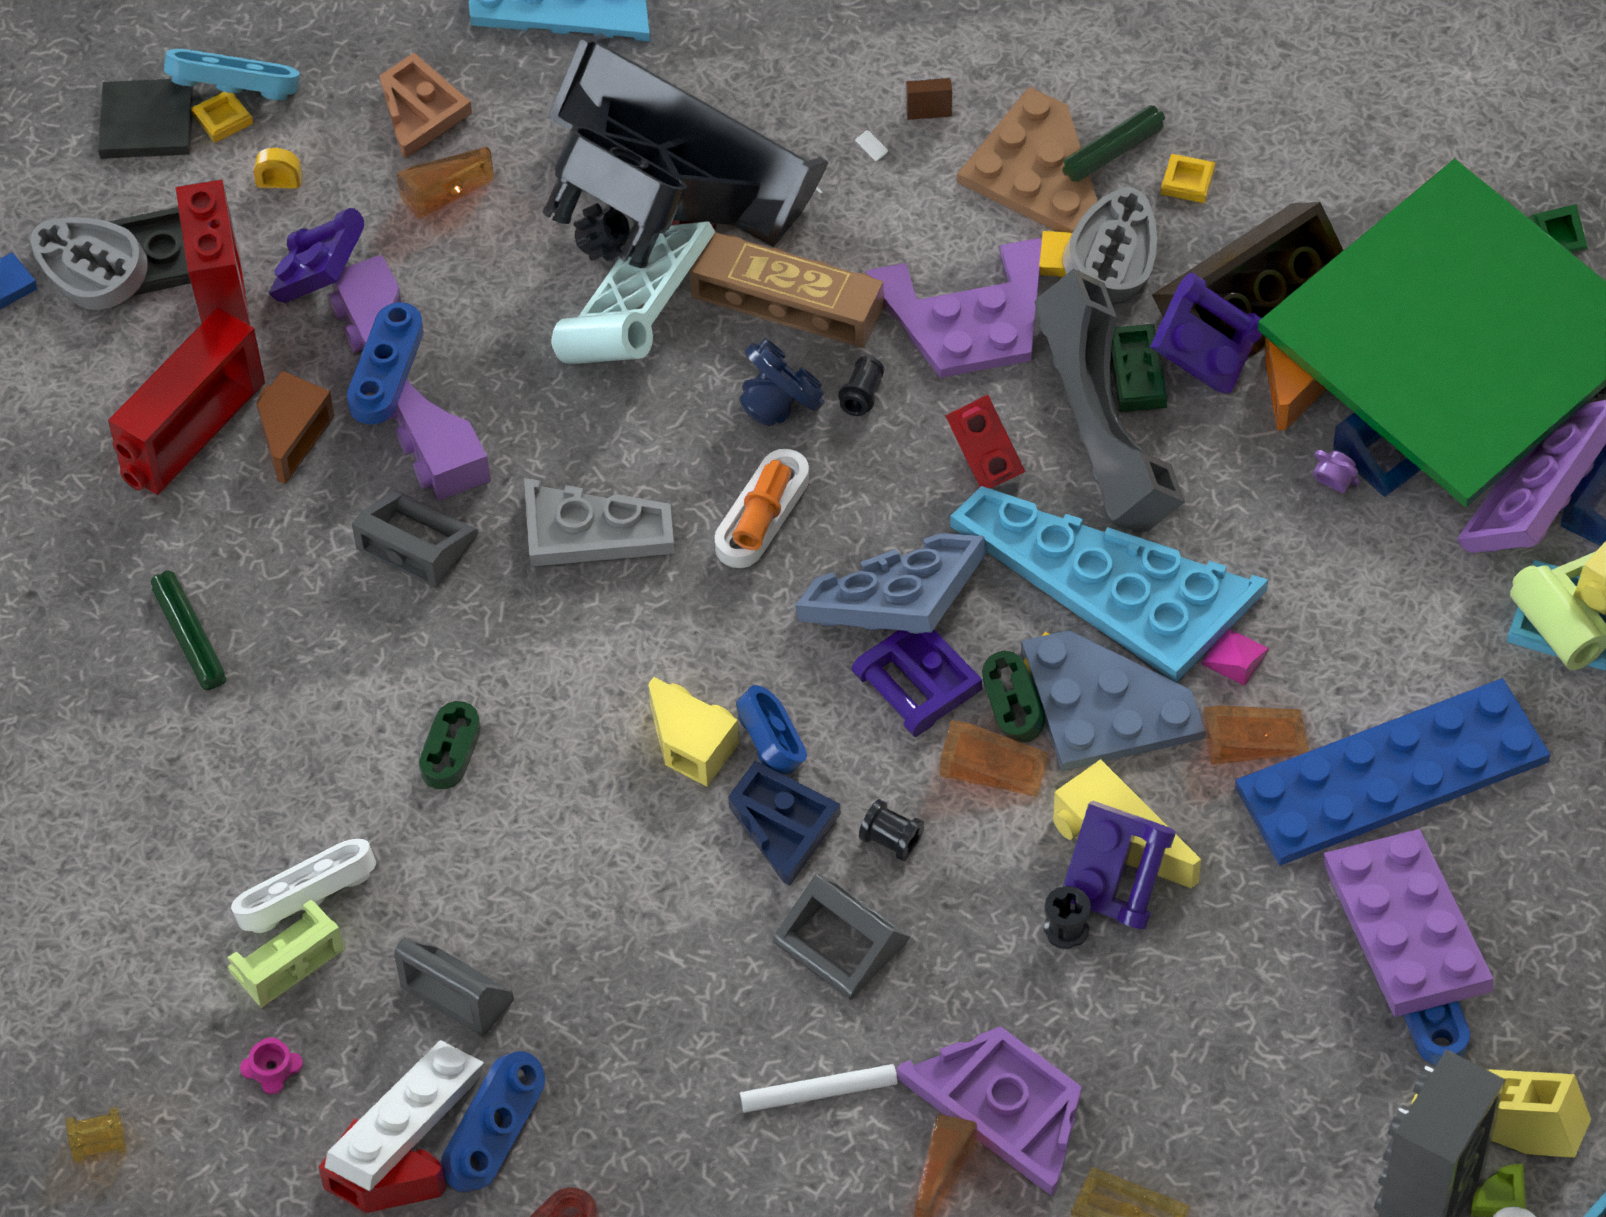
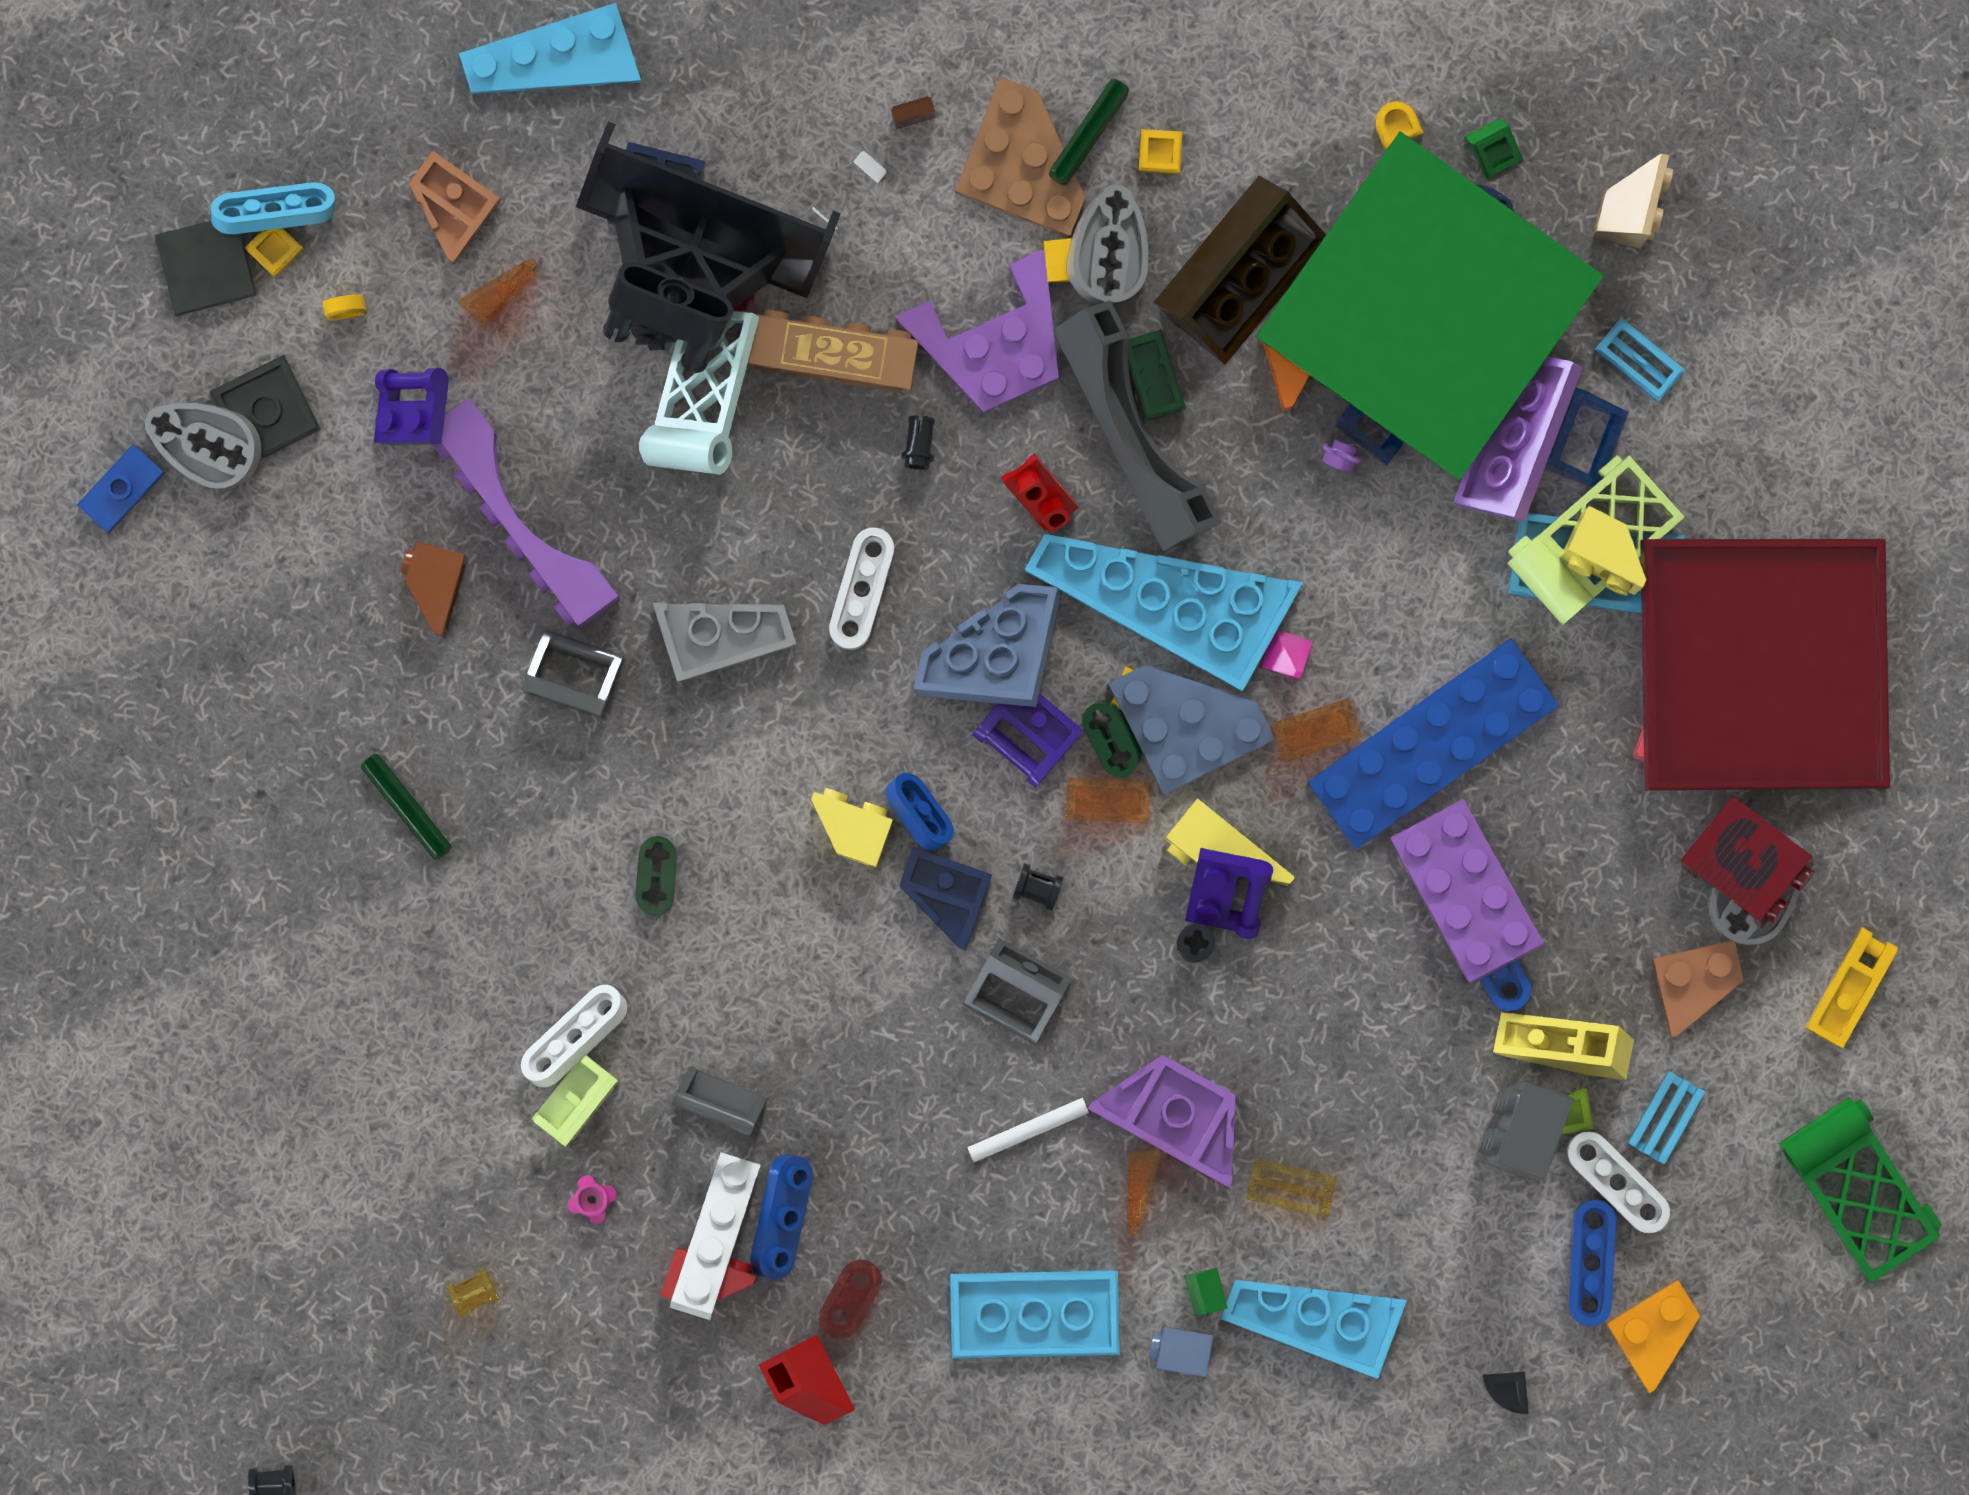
camera: 15 degrees left, 30 degrees up
(186, 401) = (343, 592): red piece -> none
(212, 250) = (332, 461): red piece -> none
(388, 375) = (511, 538): blue plate -> none
(762, 505) = (865, 597): orange axle -> none
(777, 386) = (851, 463): dark blue plate -> none
(1199, 346) = (1209, 357): dark purple plate -> none

